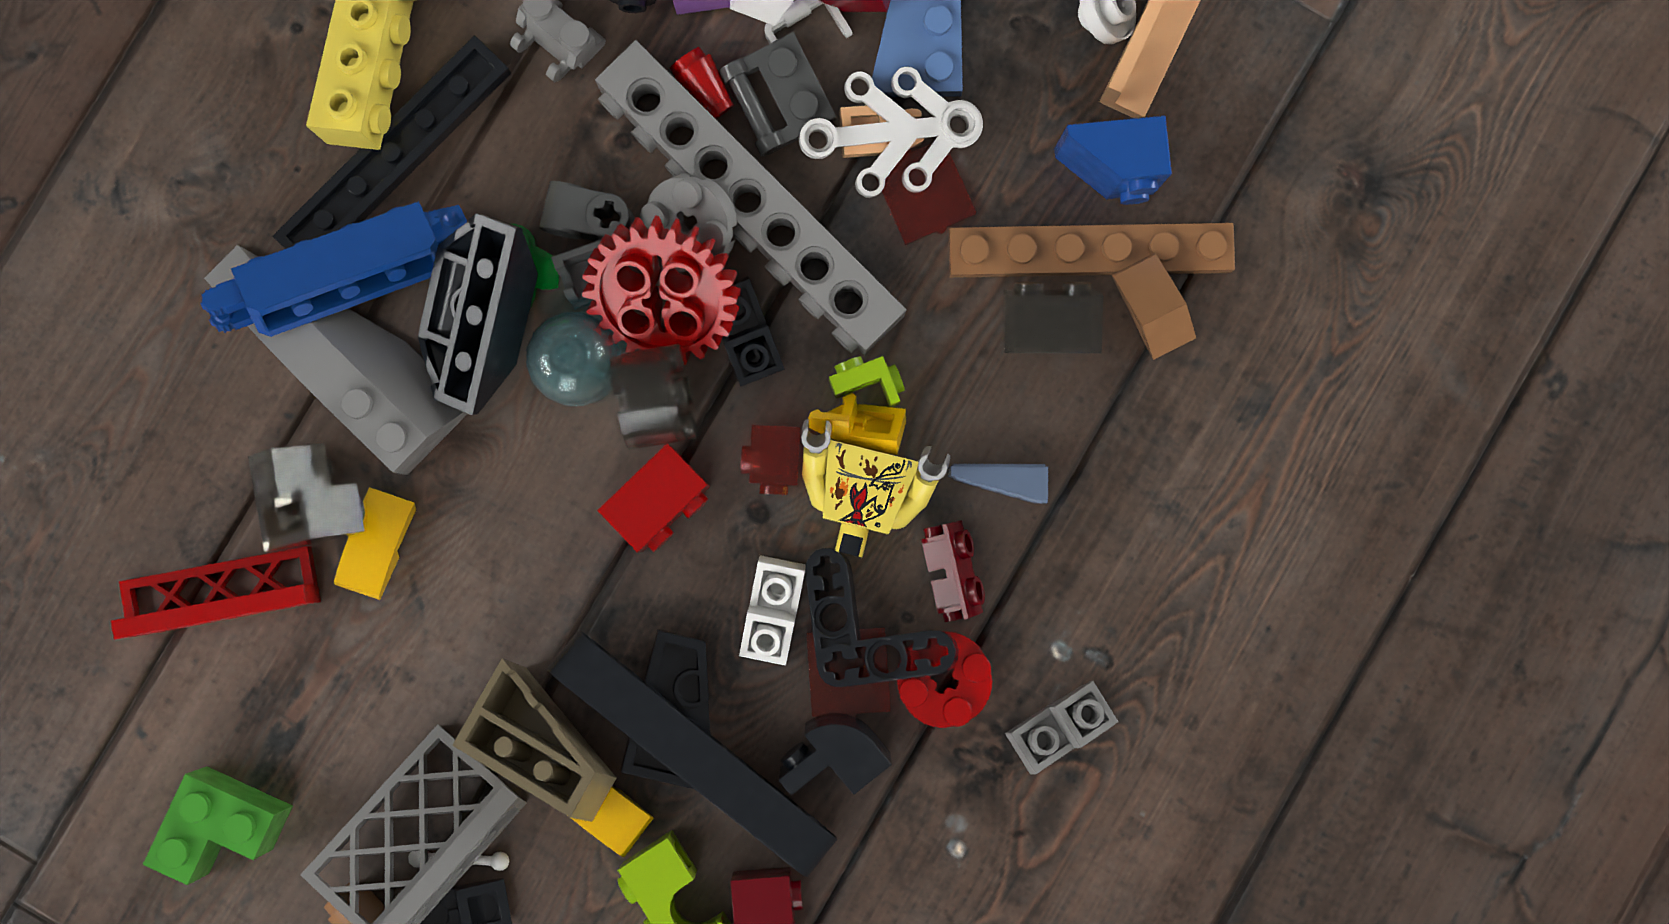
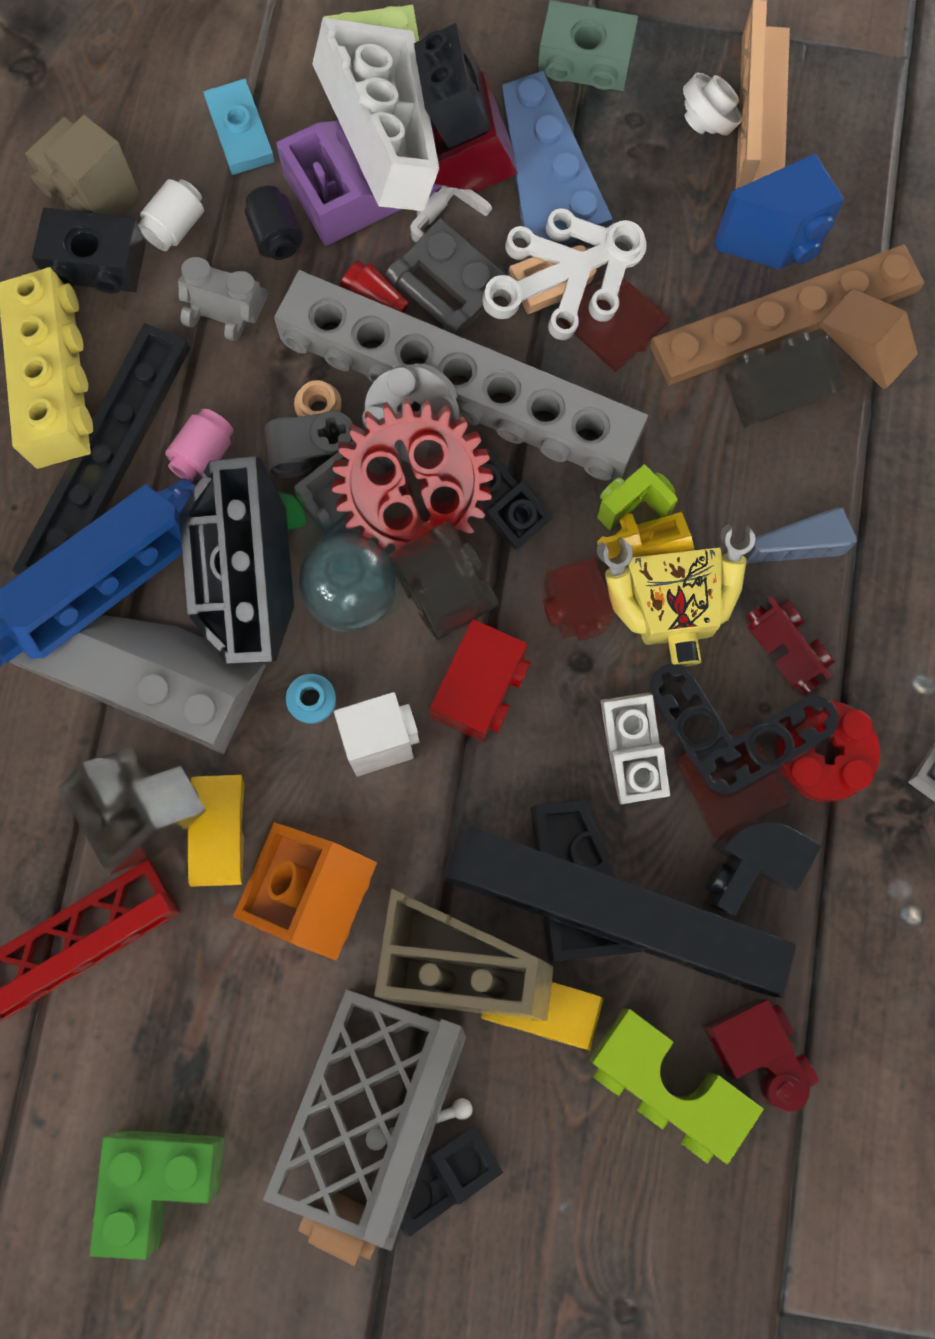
camera: 20 degrees left, 10 degrees down
(431, 628) = (305, 890): none -> orange slope
(484, 177) = (200, 440): none -> bright pink brick
(515, 458) = (318, 711): none -> medium azure plate
(540, 516) = (377, 733): none -> white brick
(604, 162) = (317, 391): none -> light nougat plate

